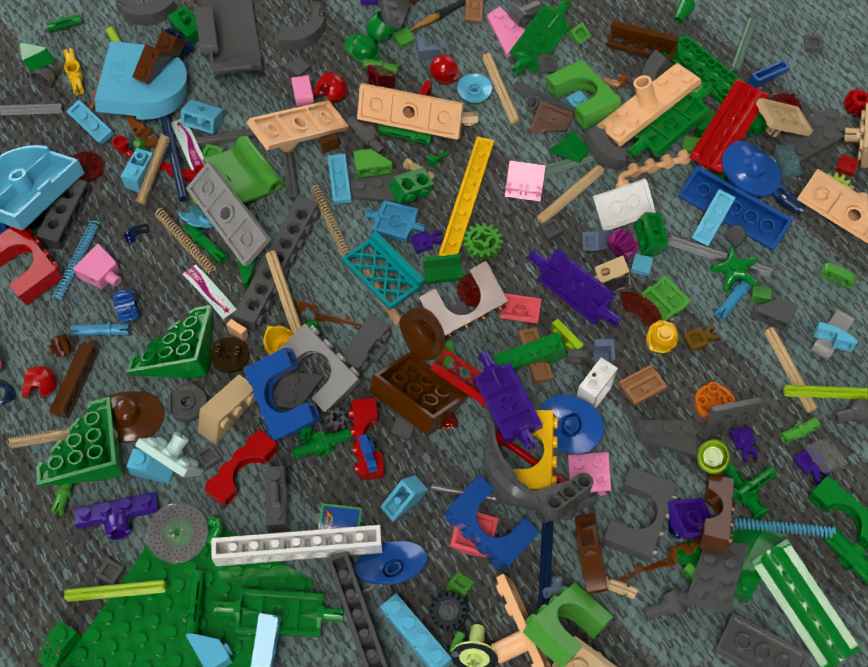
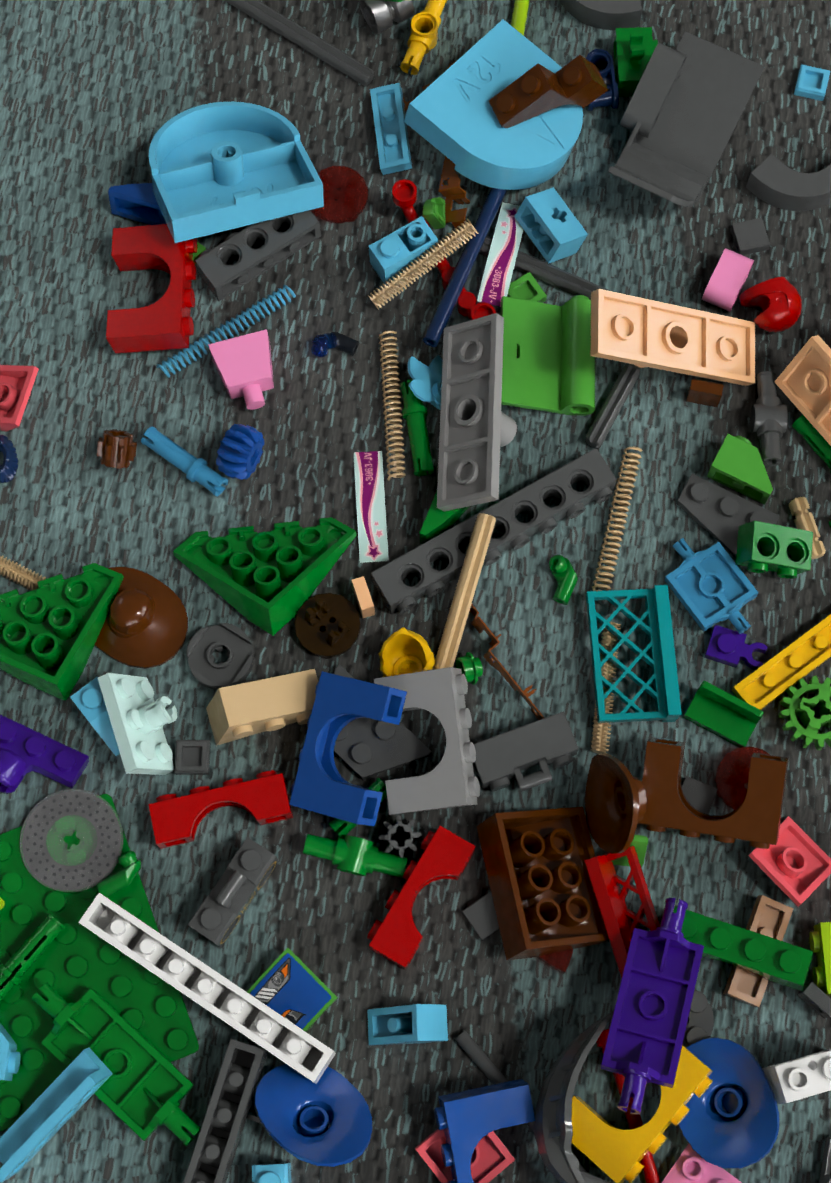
camera: 40 degrees right, 10 degrees up
(41, 378) = (54, 480): red helmet -> none
(74, 380) = (99, 512): reddish brown fence -> none
(326, 261) = (565, 577): none -> green arm
(339, 179) = (678, 460): medium azure plate -> none
(367, 448) = (403, 919): blue plate -> none

